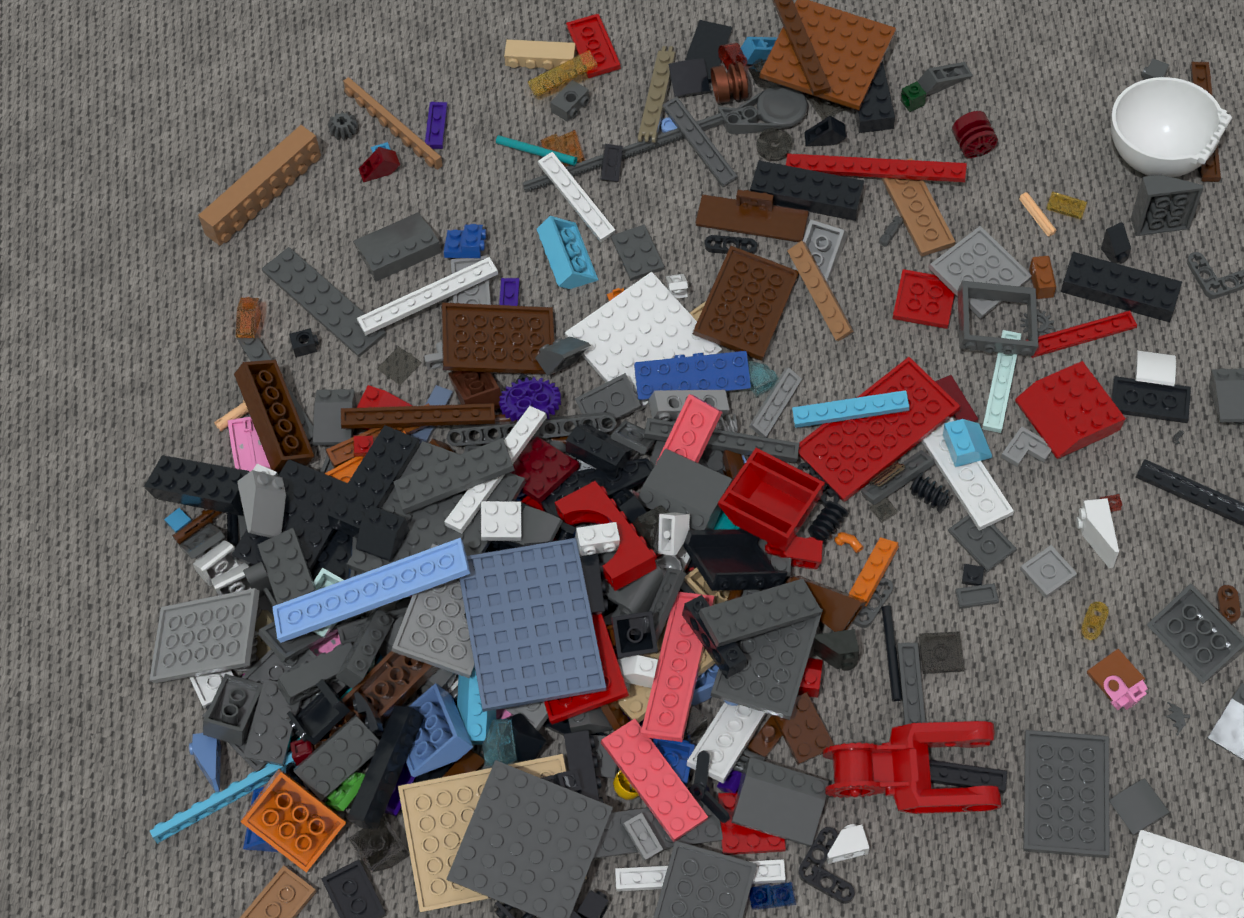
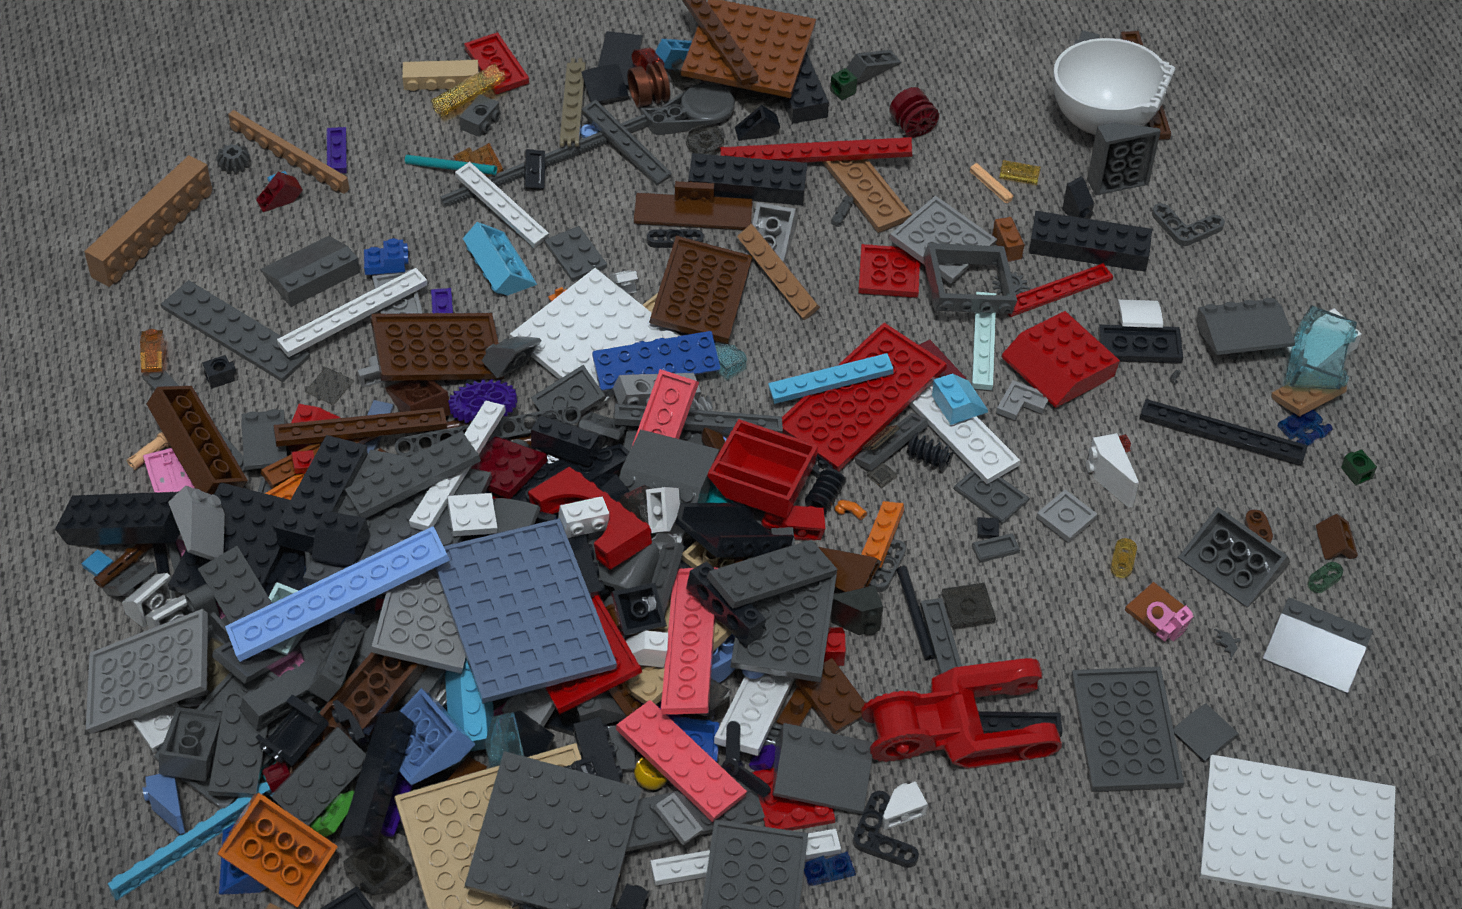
camera: 15 degrees left, 10 degrees down
(775, 402) = (749, 381): light grey plate -> none

